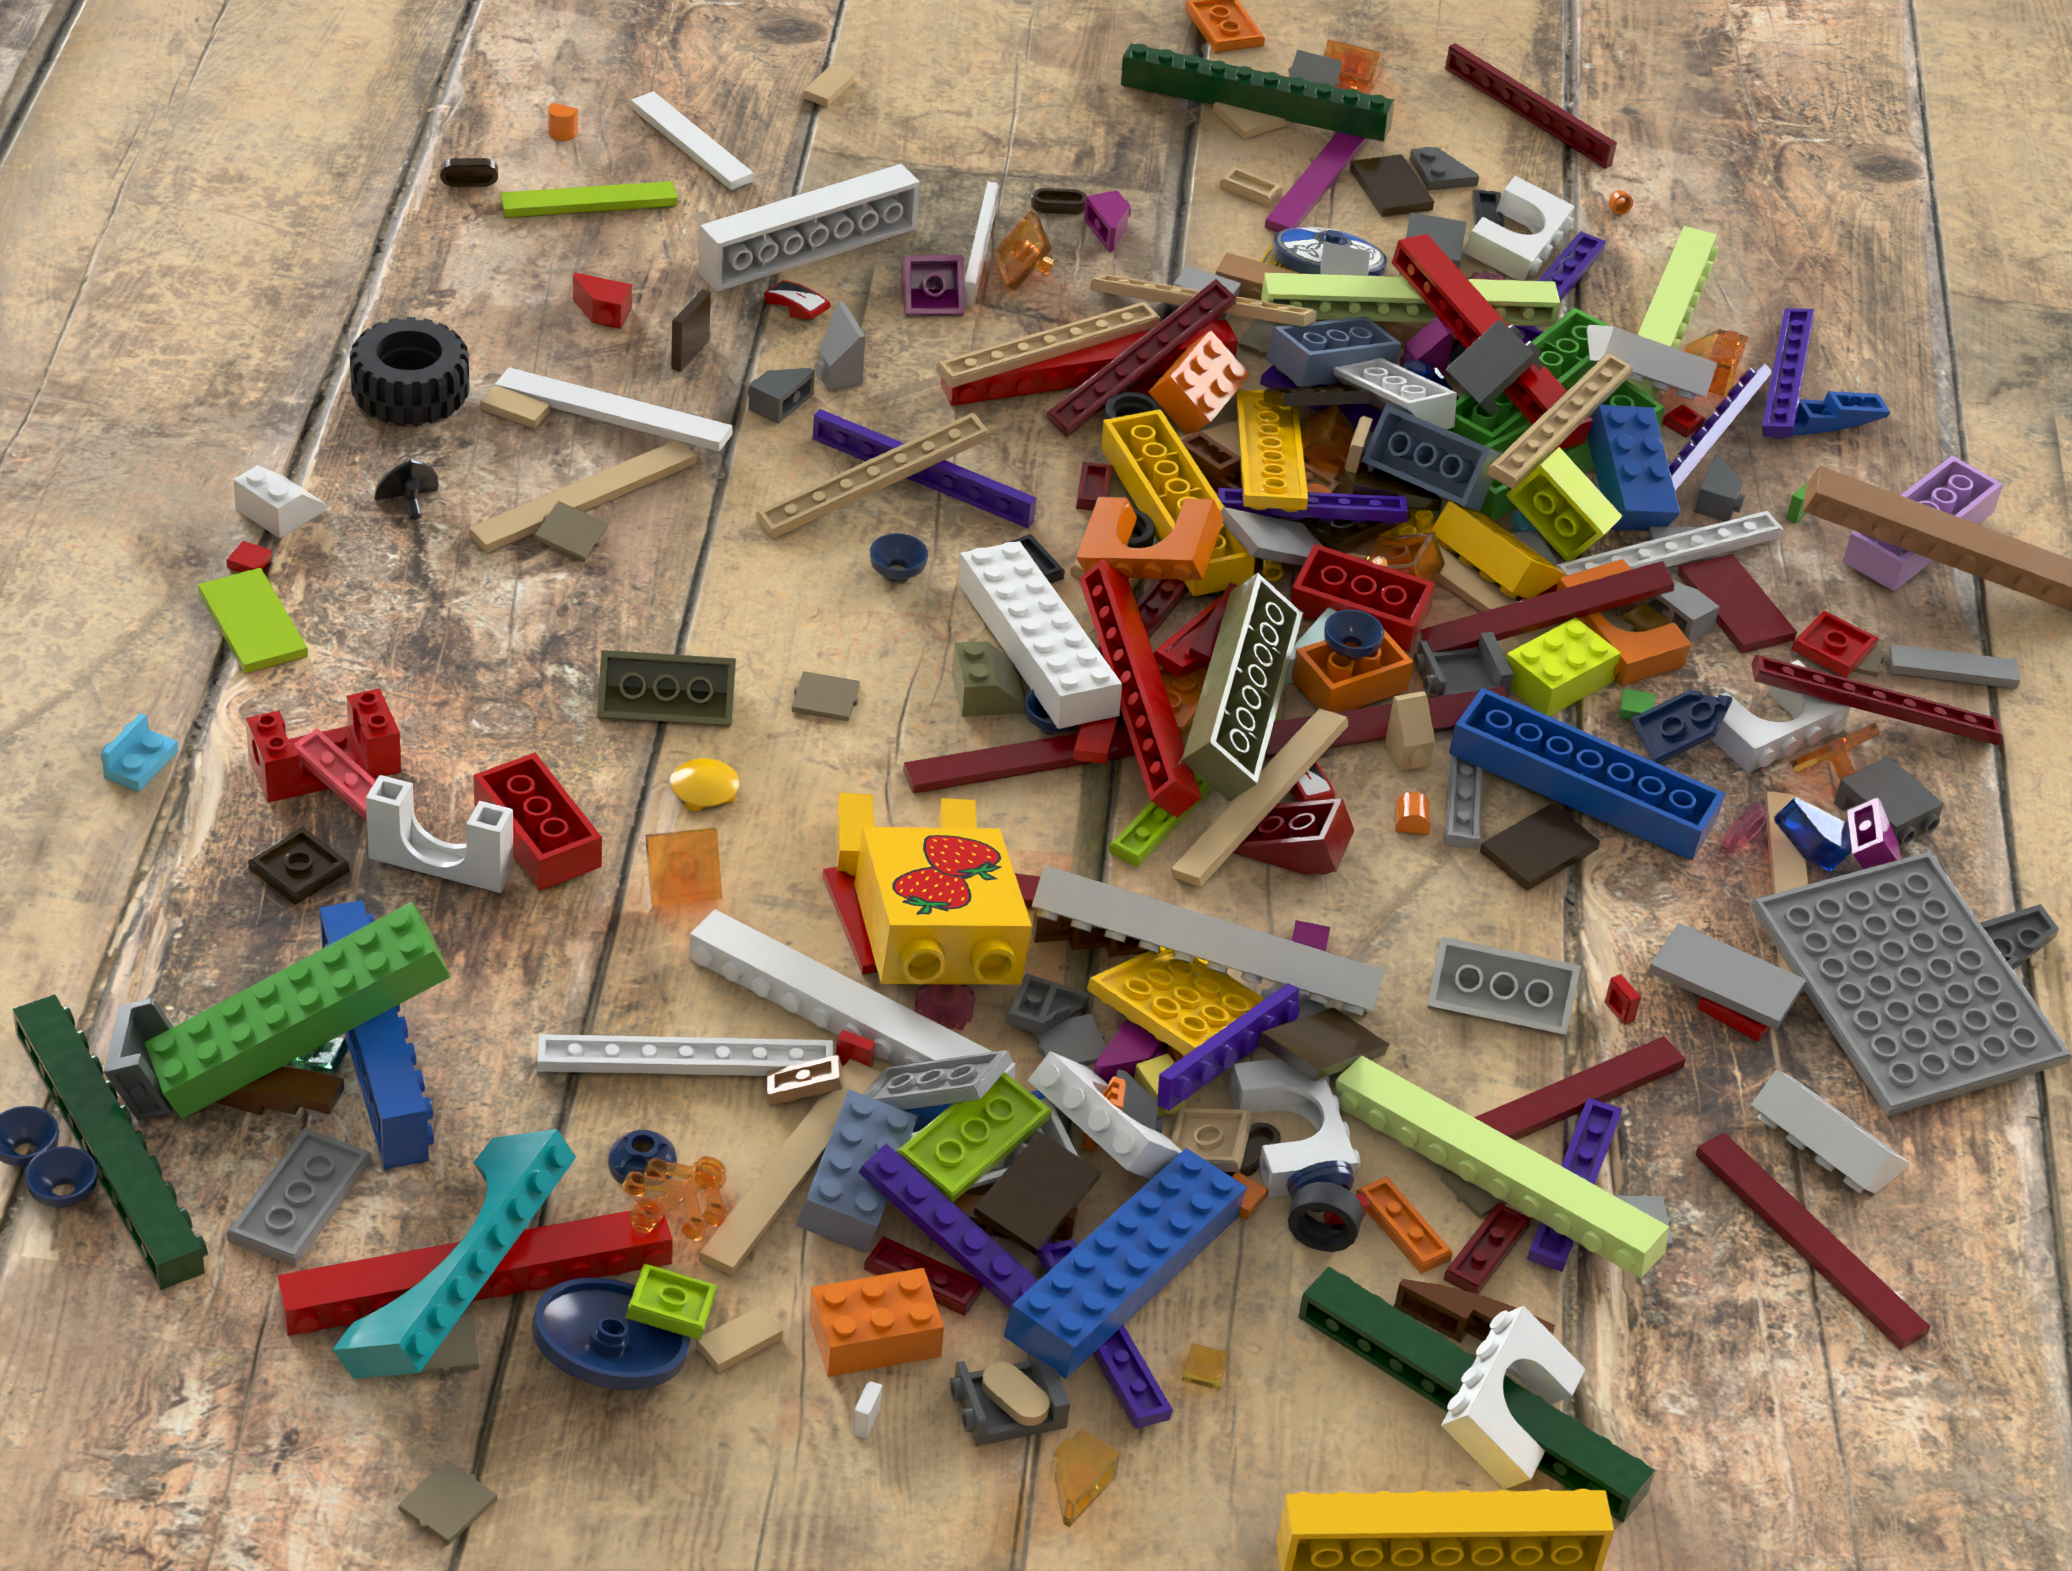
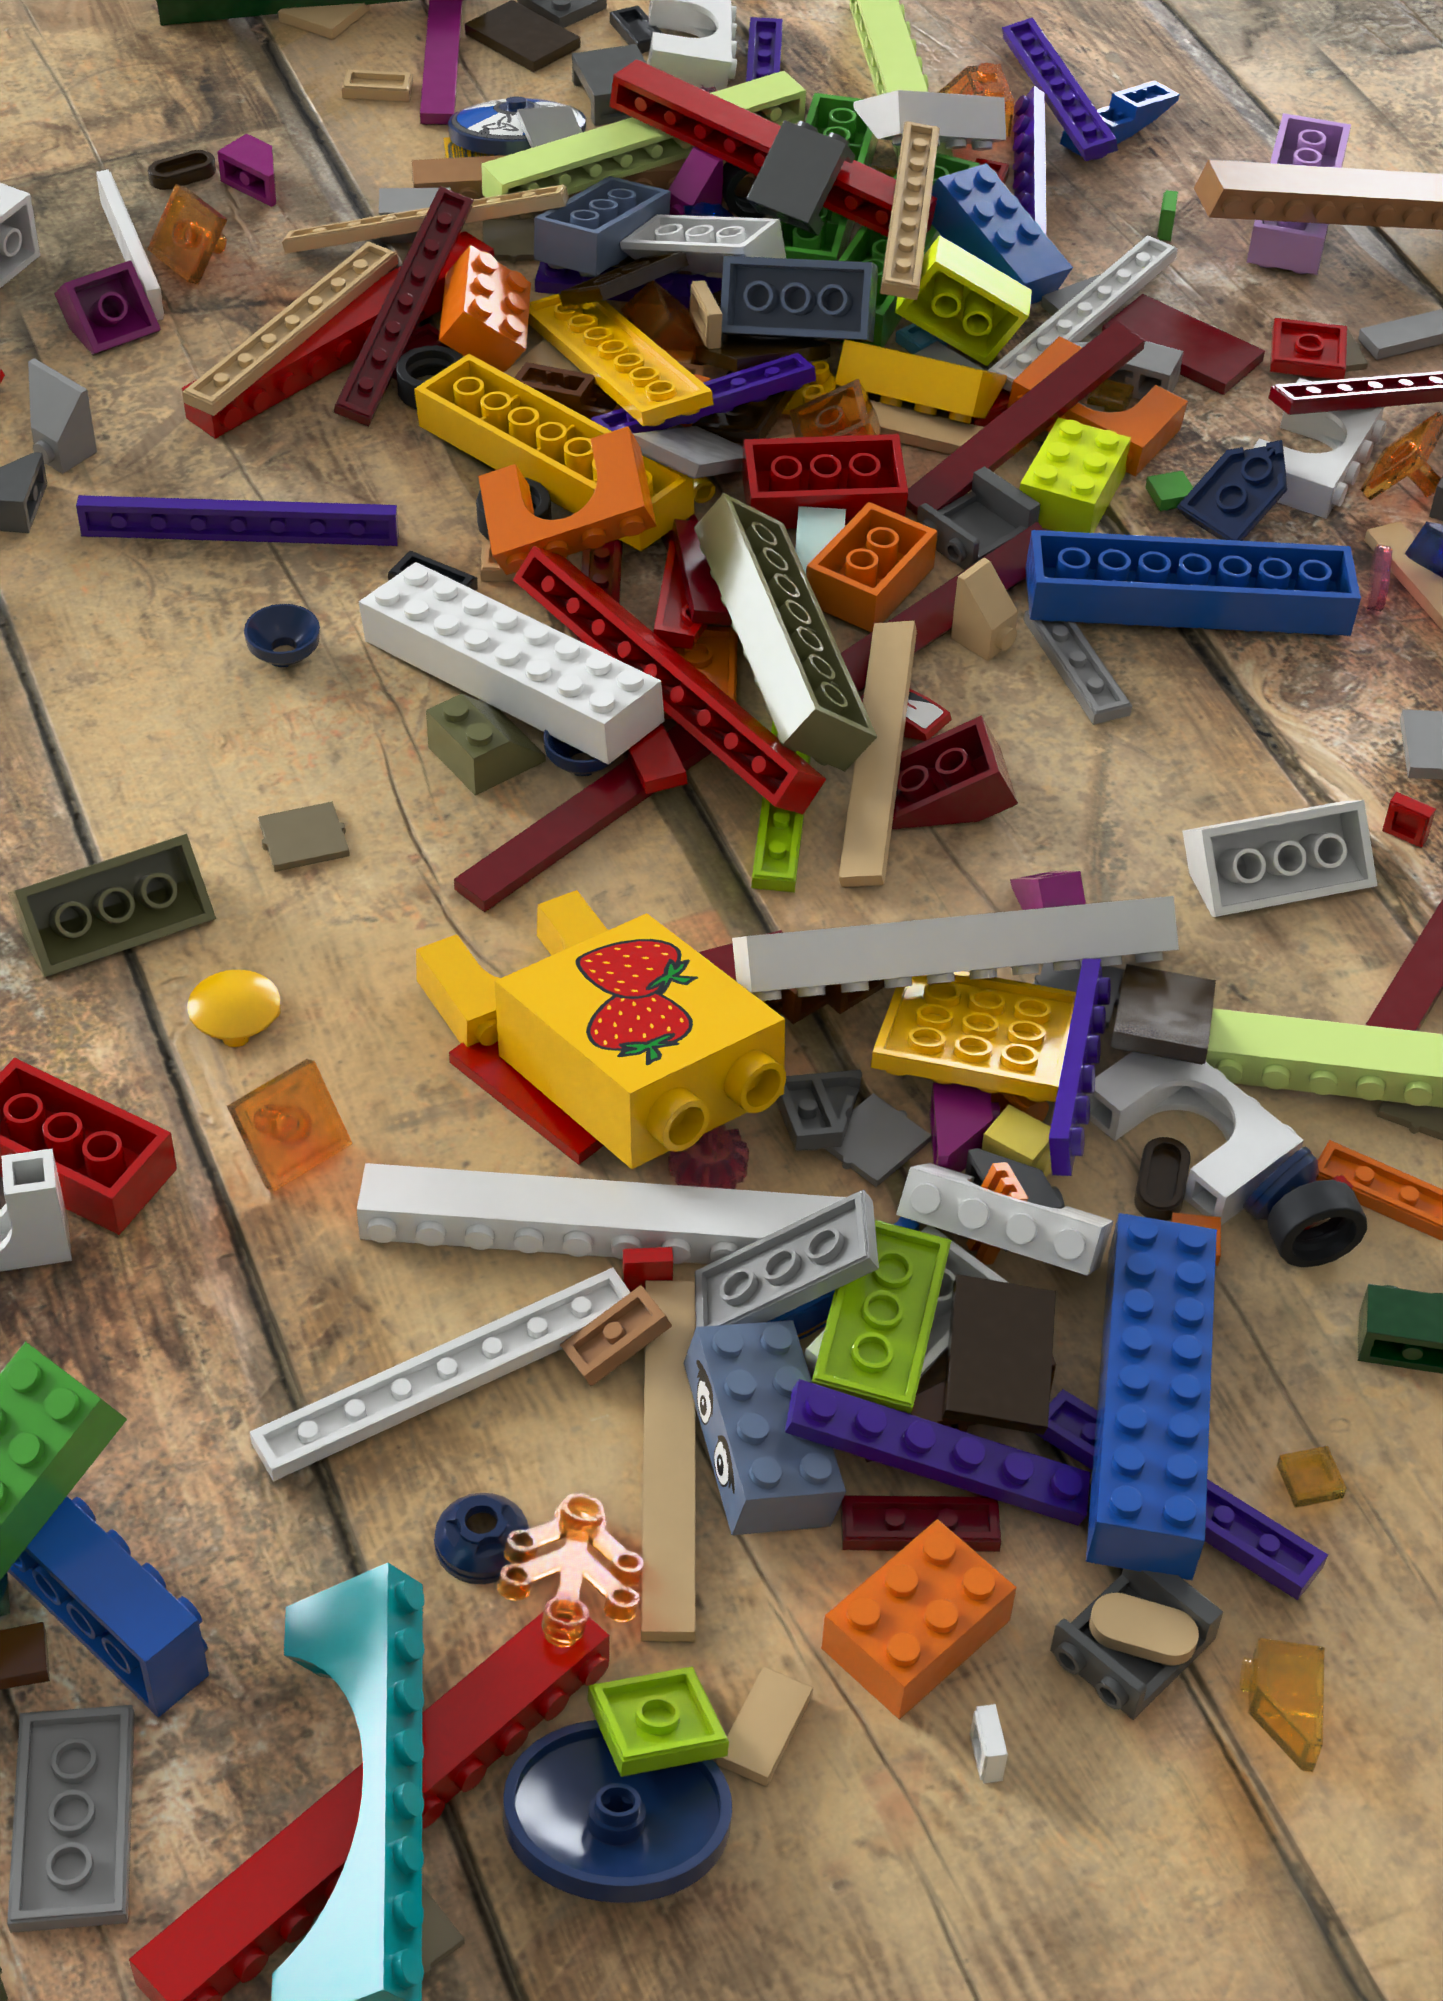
camera: 25 degrees left, 5 degrees up
(872, 475) = (189, 552): tan tile -> none
(1093, 483) = (440, 470): dark red tile -> none
(1214, 1135) = (1120, 1180): tan tile -> none
(1356, 628) = (864, 516): dark blue piece -> none
(1412, 813) = (1042, 703): orange brick -> none
(1539, 846) = (1193, 685): dark brown tile -> none
(1720, 492) = (1083, 233): dark grey slope -> none

